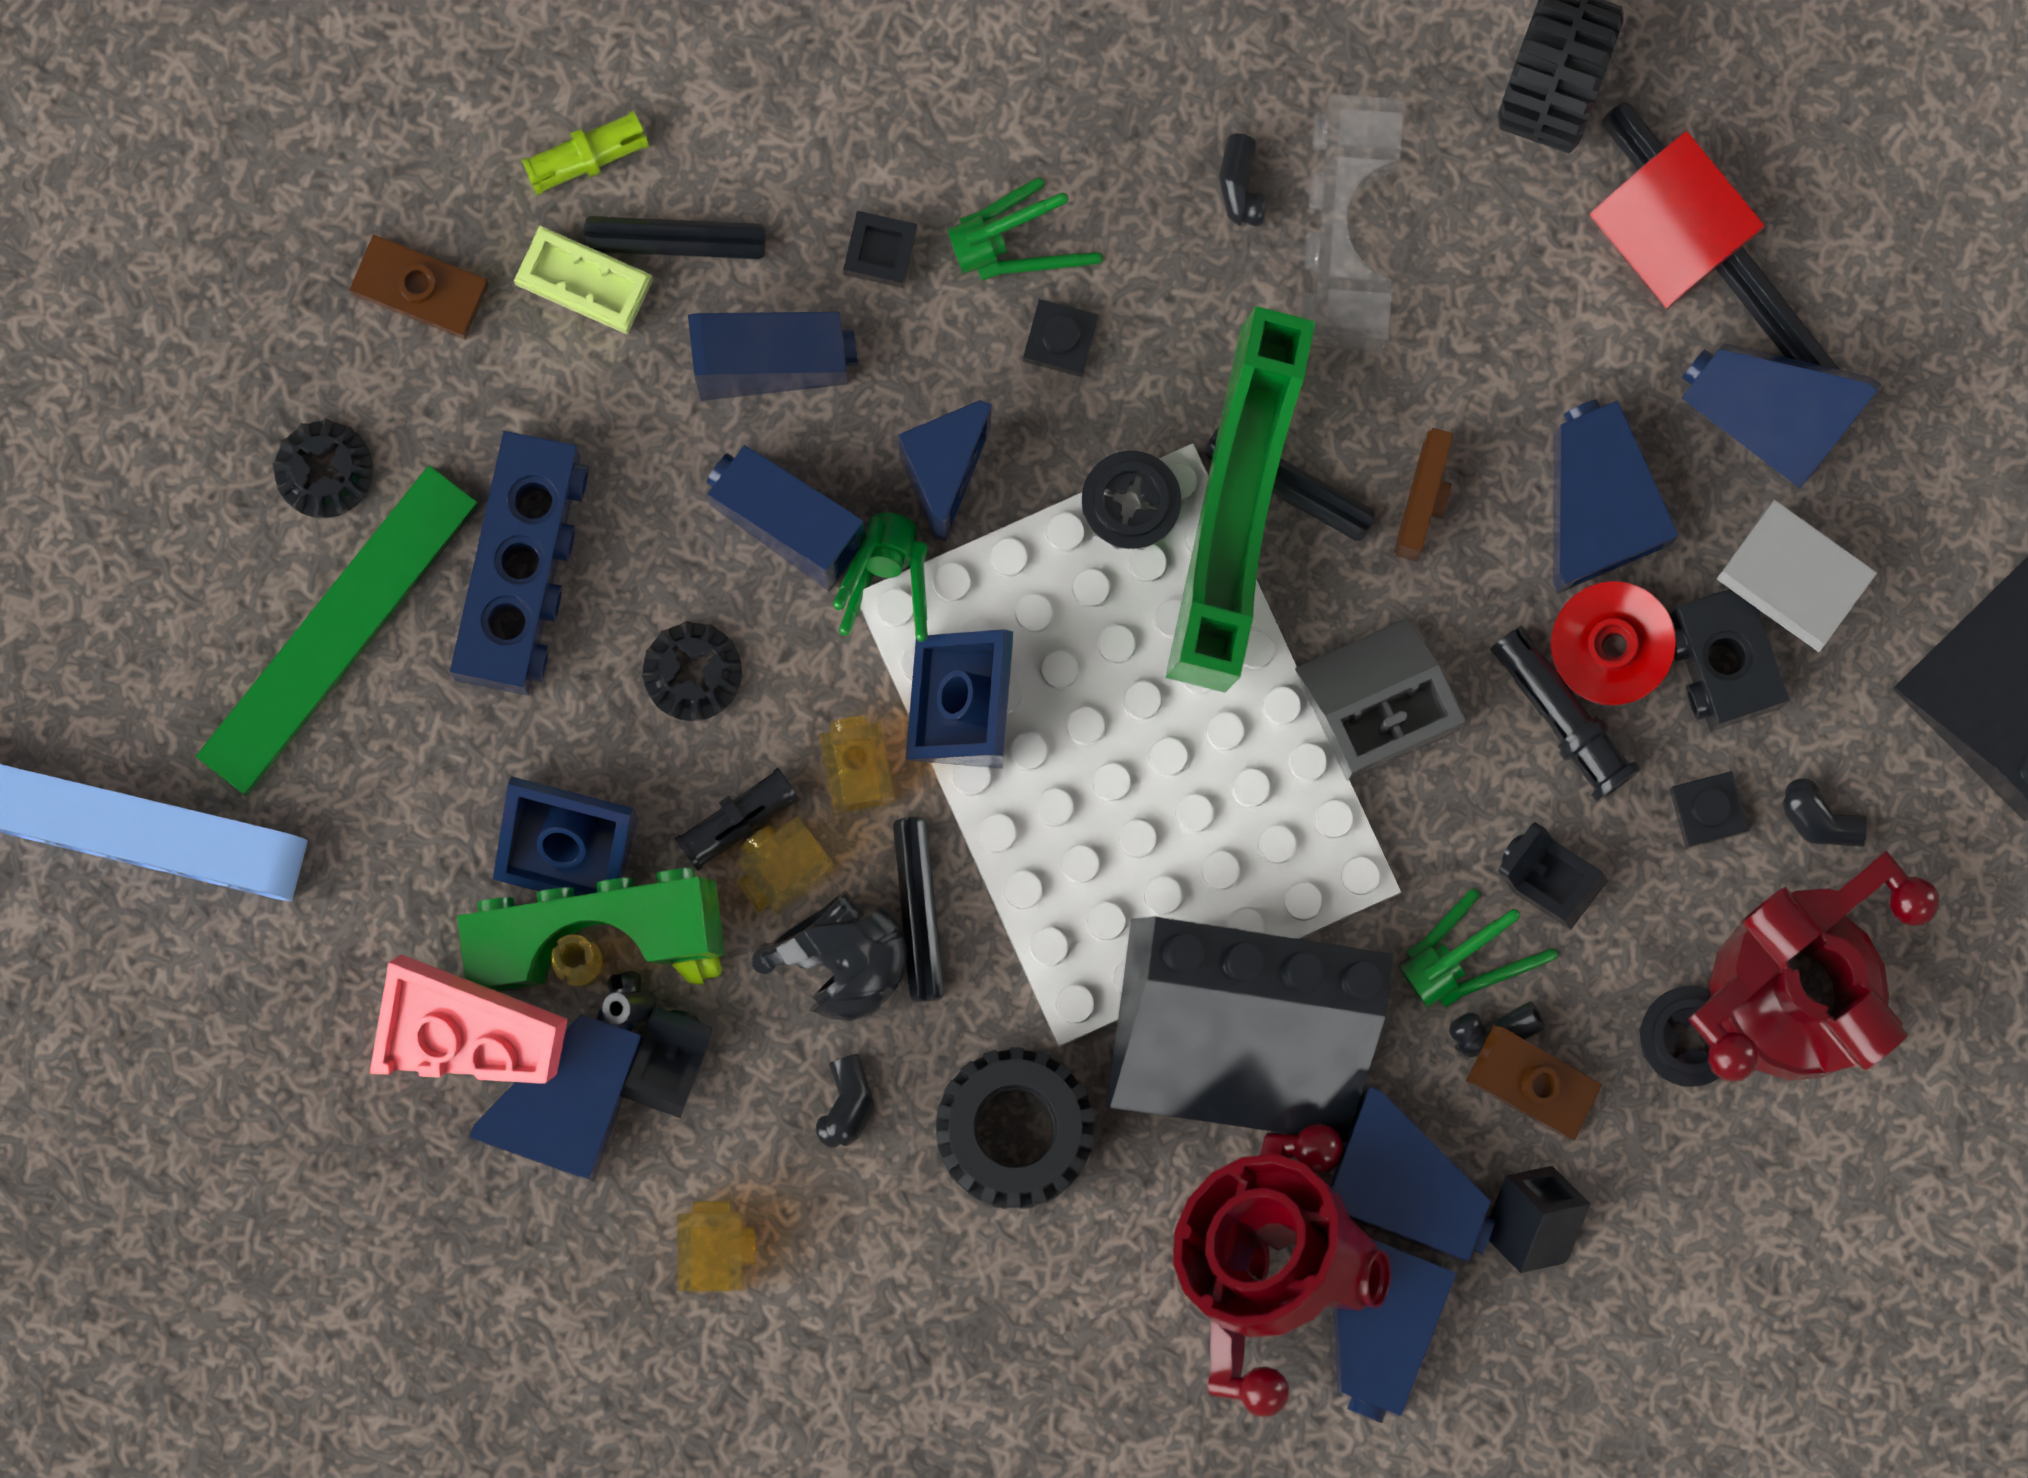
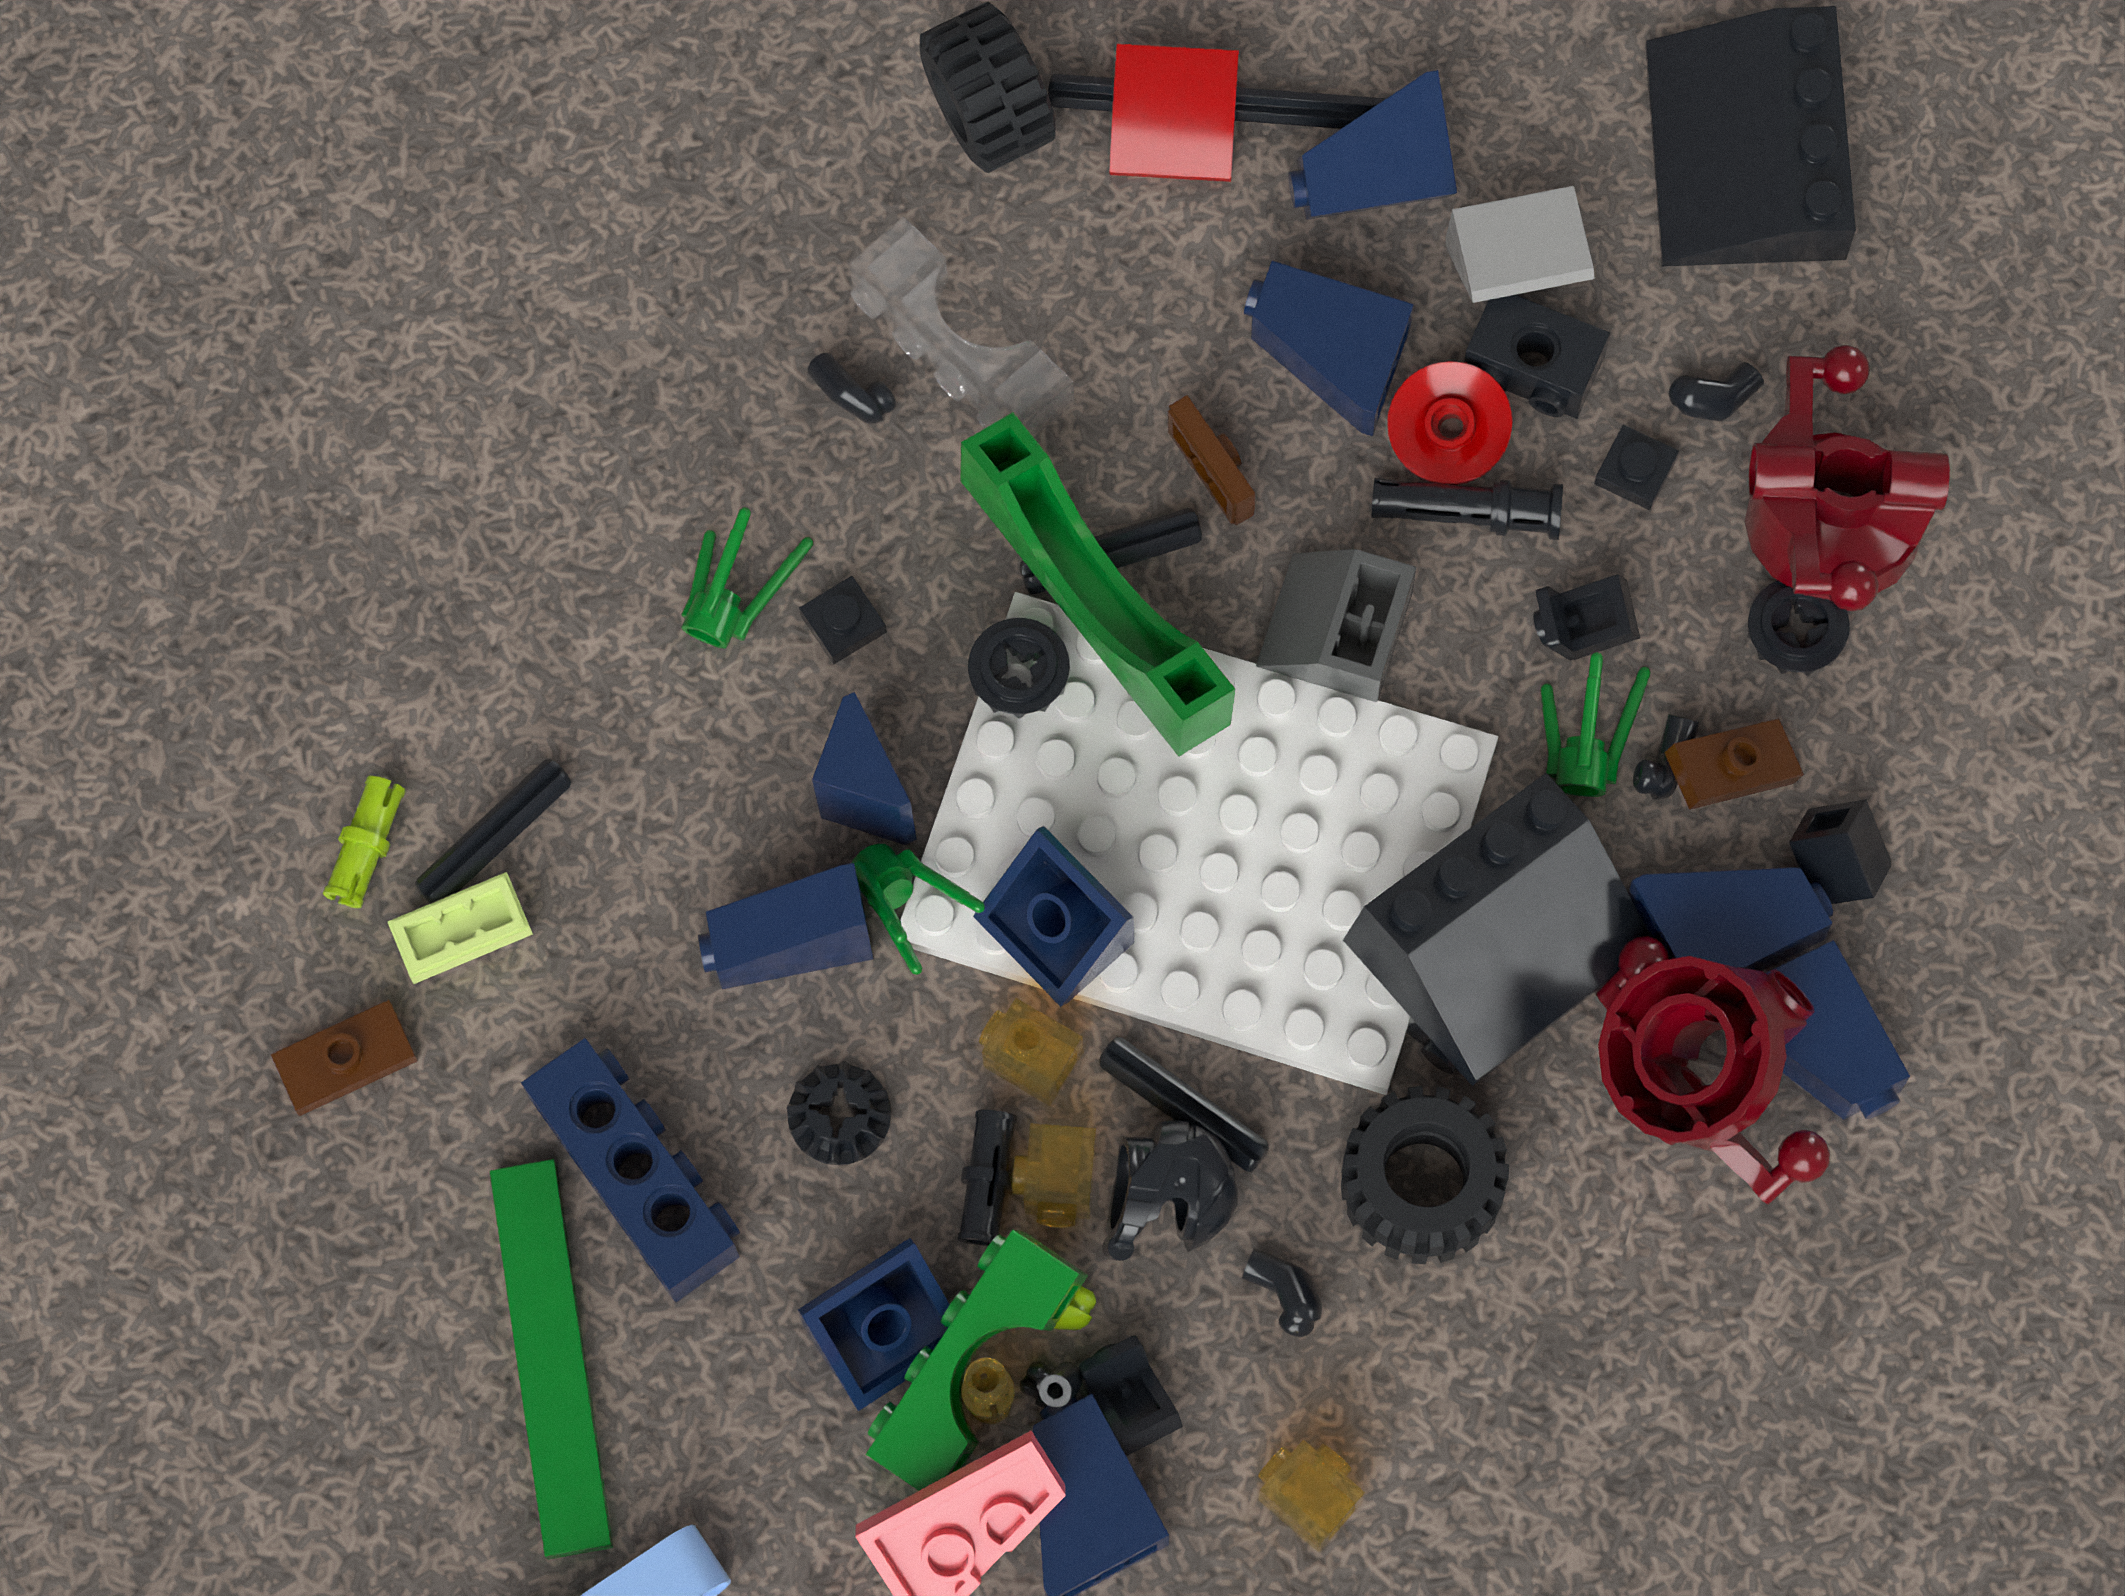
camera: 40 degrees left, 10 degrees down
(327, 496) = (439, 1270): black gear -> none
(768, 352) = (649, 836): dark blue slope -> none
(880, 249) = (650, 689): black plate -> none

